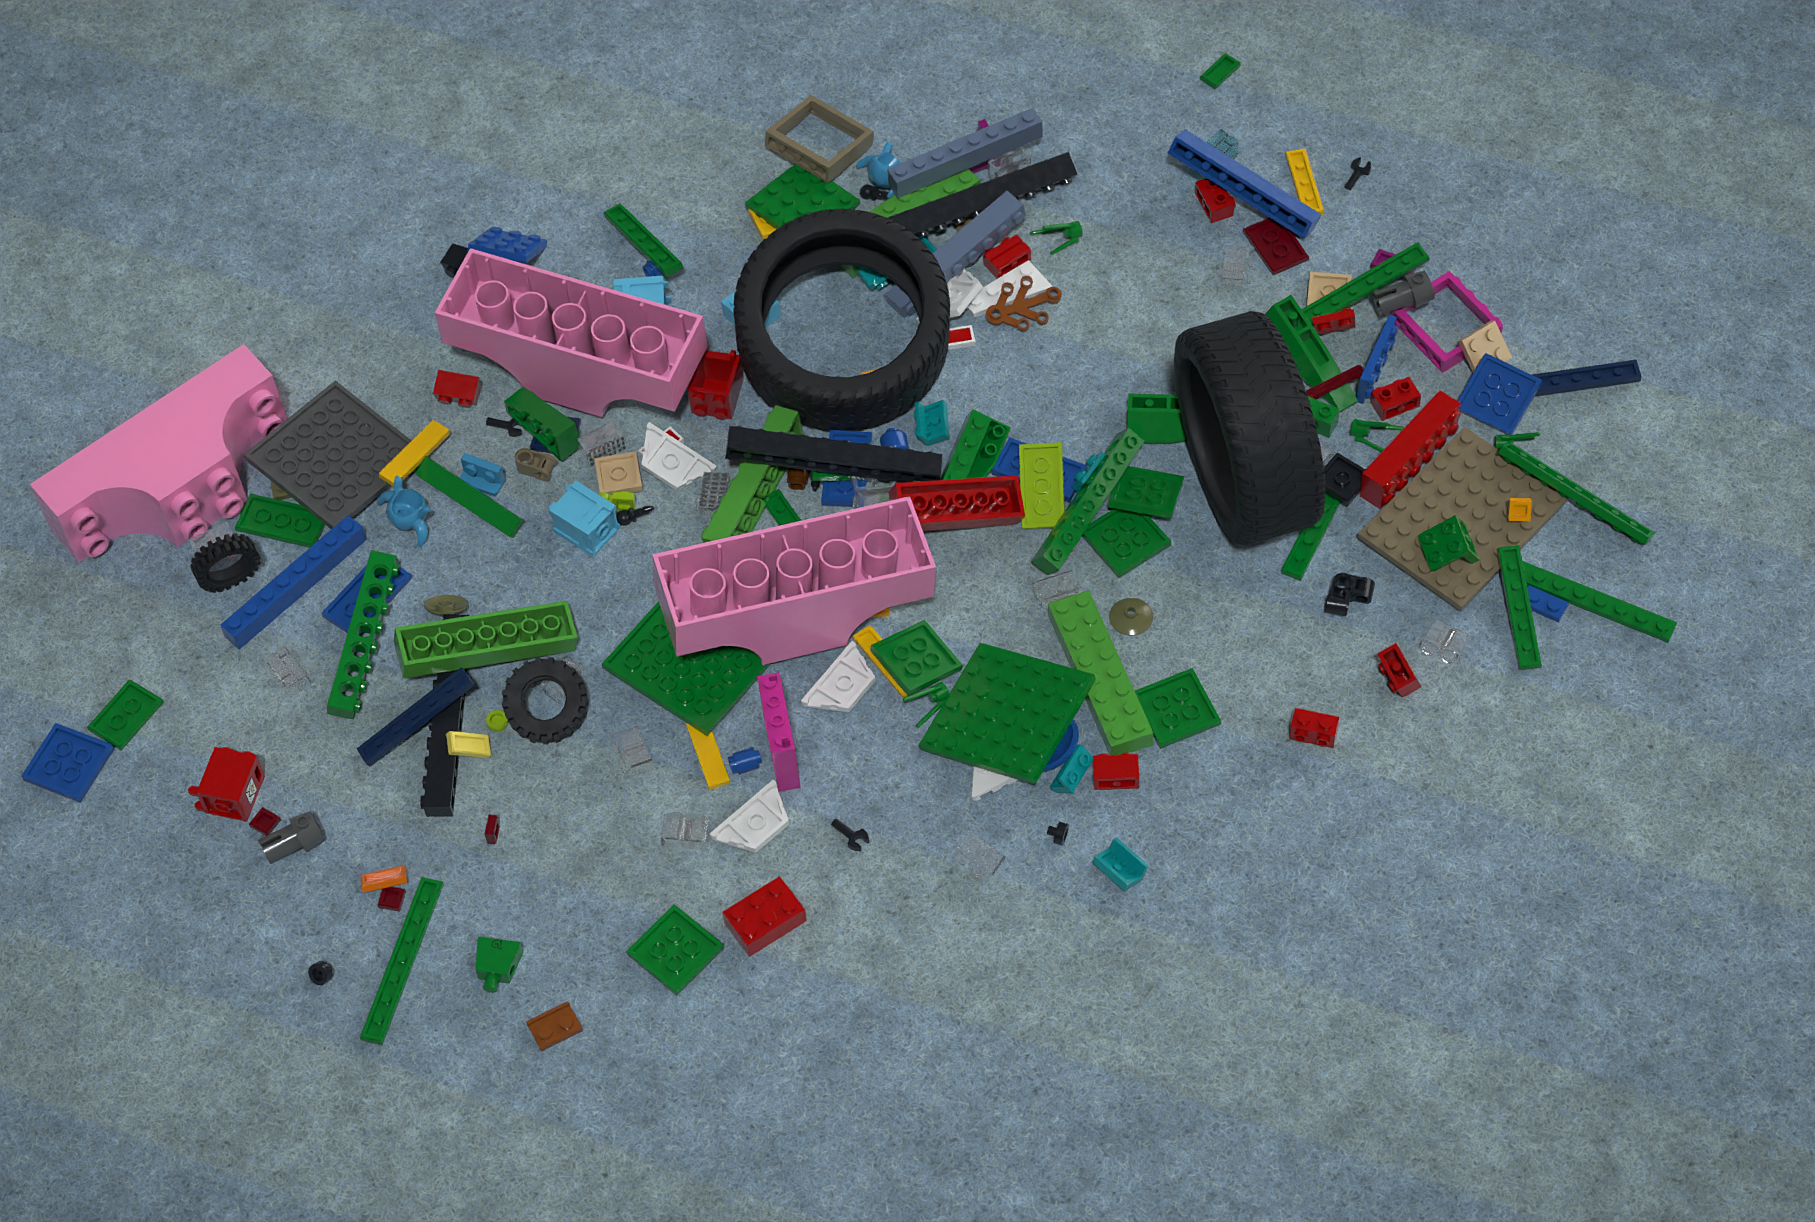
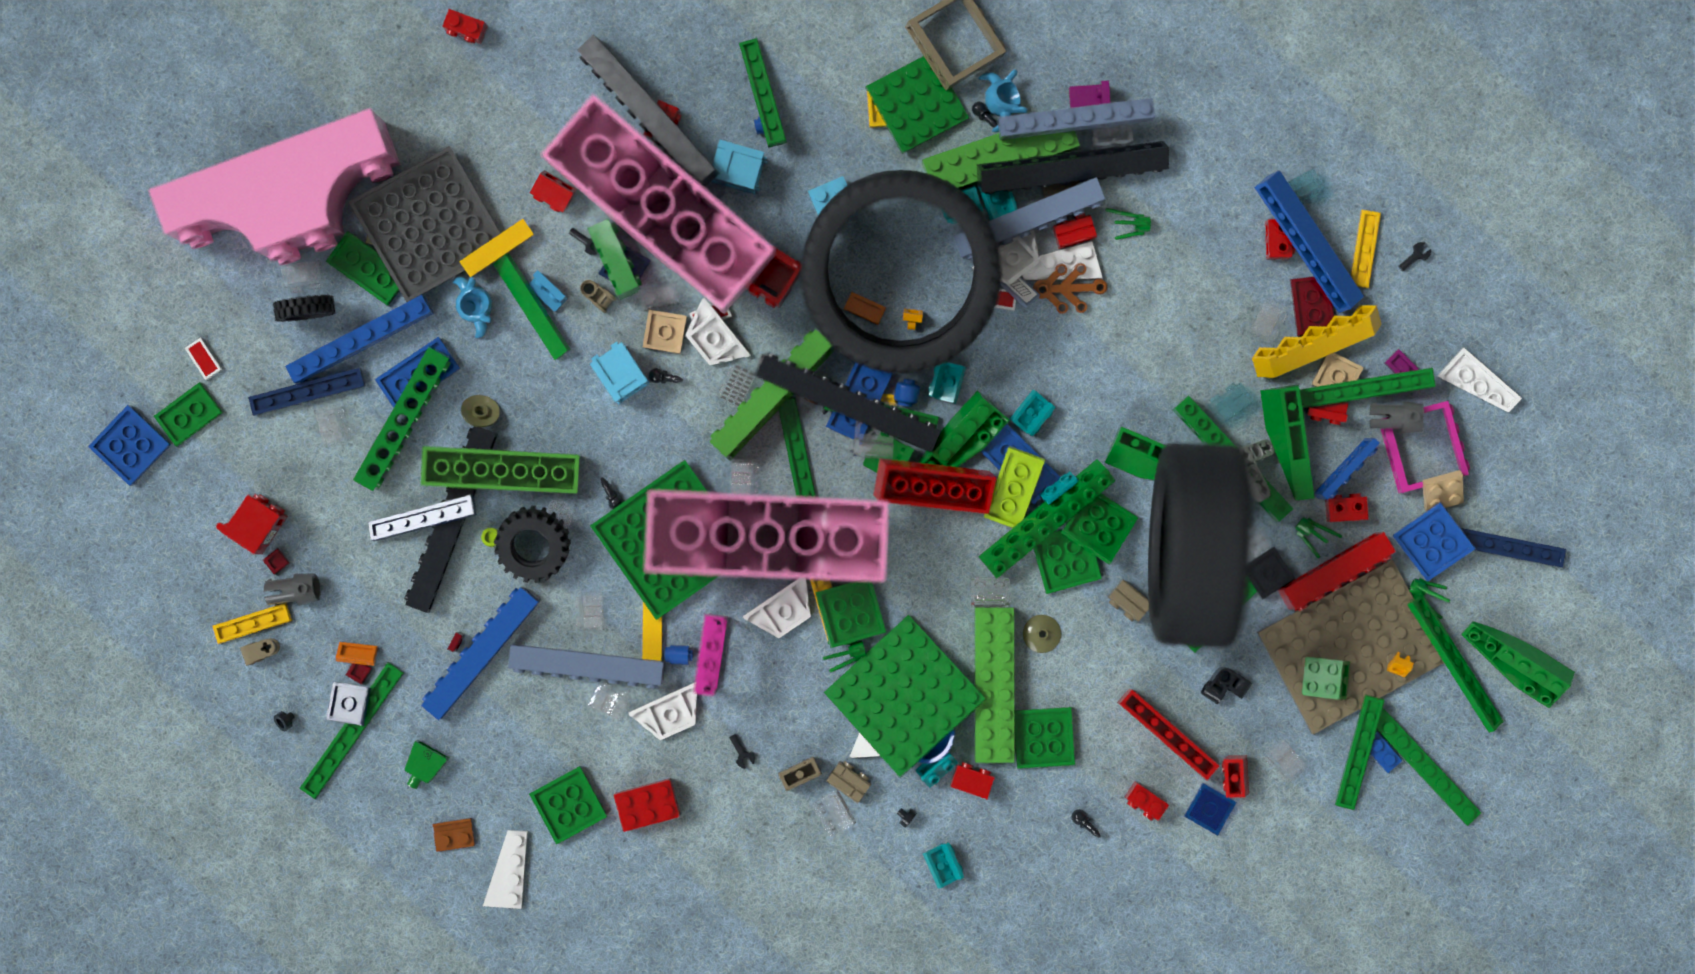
camera: 15 degrees right, 30 degrees up
(127, 658) = (203, 359): none -> red tile
(250, 650) = (306, 391): none -> dark blue plate
(255, 891) = (252, 623): none -> yellow tile
(270, 912) = (257, 651): none -> dark tan piece
(318, 281) = (464, 26): none -> red brick
(390, 931) = (348, 703): none -> tile
(468, 744) = (459, 557): light yellow tile -> none
(509, 245) = (641, 55): blue plate -> none
(523, 832) = (480, 653): none -> blue brick
(611, 634) = (613, 497): none -> black bar
(622, 500) = (660, 360): lime plate -> none
(632, 1047) = (508, 877): none -> white wing
(646, 801) = (586, 664): none -> sand blue brick
(923, 826) = (799, 773): none -> dark tan brick
(973, 321) = (1021, 292): none -> tile
(981, 819) = (848, 781): none -> dark tan brick
(1032, 421) = (1032, 413): none -> teal bracket
(1209, 551) = (1129, 600): none -> dark tan brick
(1220, 71) = (1341, 95): green tile -> none
(1250, 773) = (1080, 818): none -> black bar
(1293, 265) = (1317, 342): none -> yellow brick
(1307, 655) = (1168, 734): none -> red brick
(1335, 382) = (1300, 480): dark red axle -> none
(1387, 717) = (1210, 809): none -> clear blue tile
(1470, 250) = (1477, 379): none -> white wing
(1645, 474) = (1521, 663): none -> green wedge

